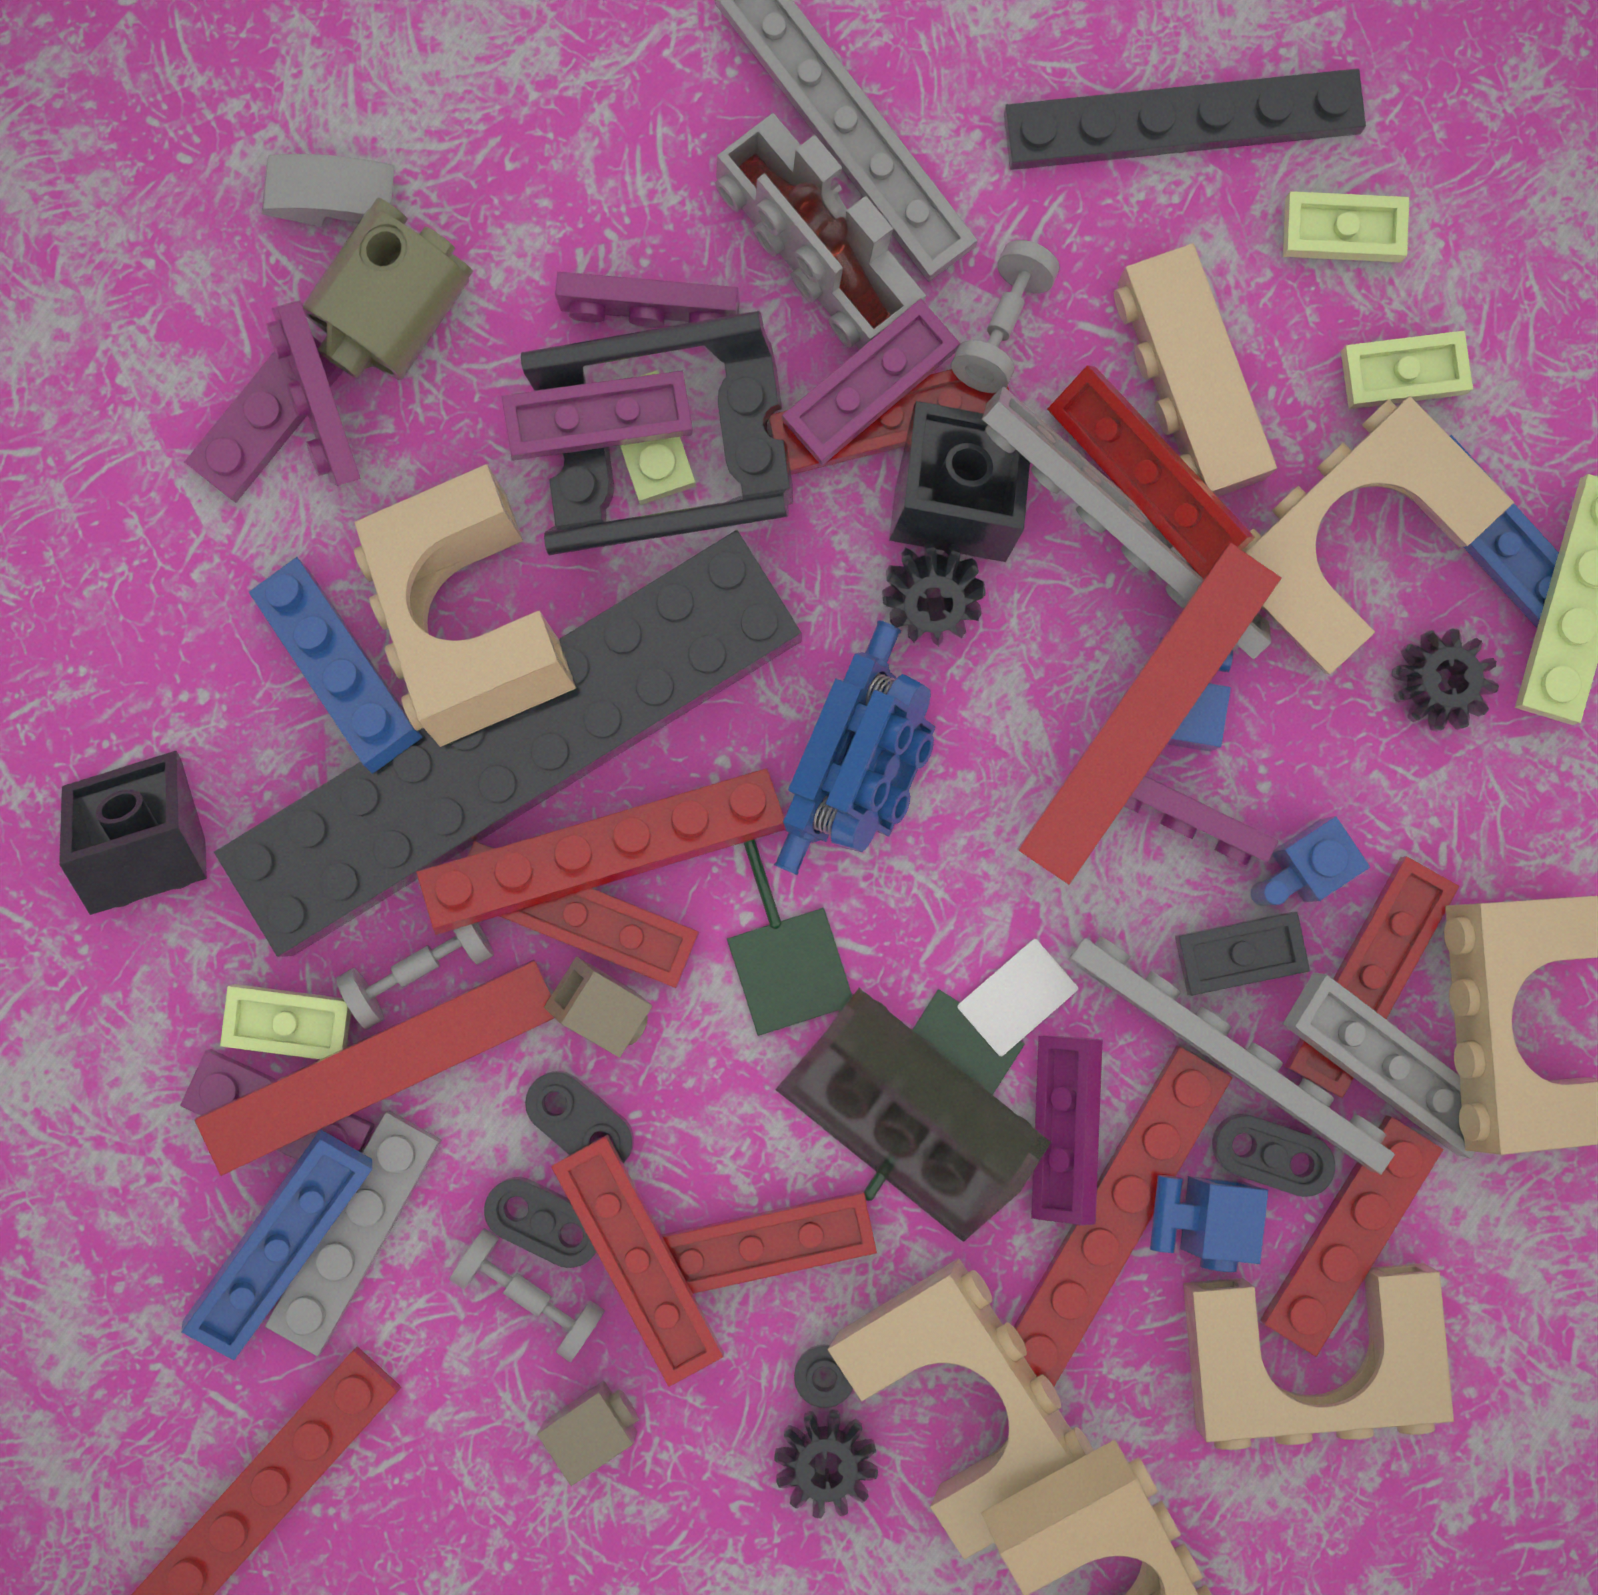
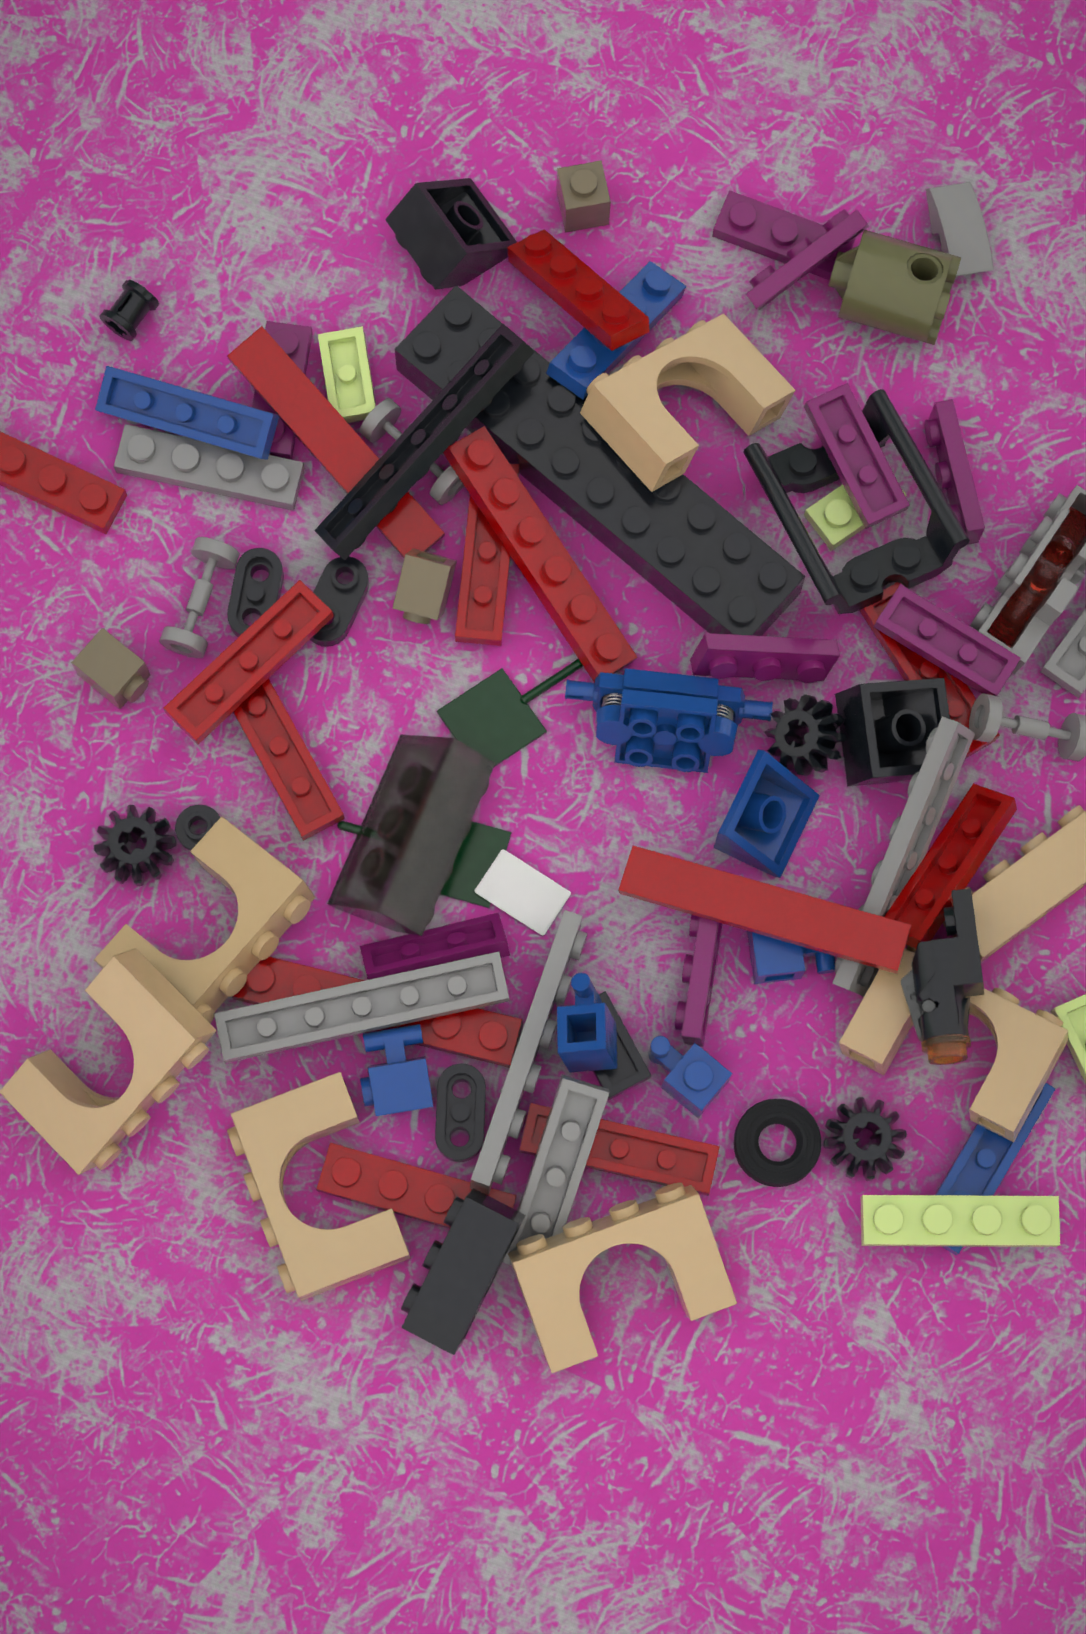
camera: 70 degrees right, 10 degrees down
(110, 1279) = (129, 310): none -> black bush
(136, 650) = (583, 196): none -> dark tan brick
(269, 696) = (578, 290): none -> red plate
(417, 955) = (424, 441): none -> black plate
(824, 613) = (764, 657): none -> magenta plate
(1016, 673) = (766, 816): none -> blue slope
(1121, 1244) = (361, 1007): none -> light grey plate
(1240, 979) = (586, 1030): none -> blue brick
(1308, 531) = (941, 979): none -> black plate
(1452, 777) = (777, 1172): none -> black tyre
(1475, 1213) = (461, 1270): none -> black brick

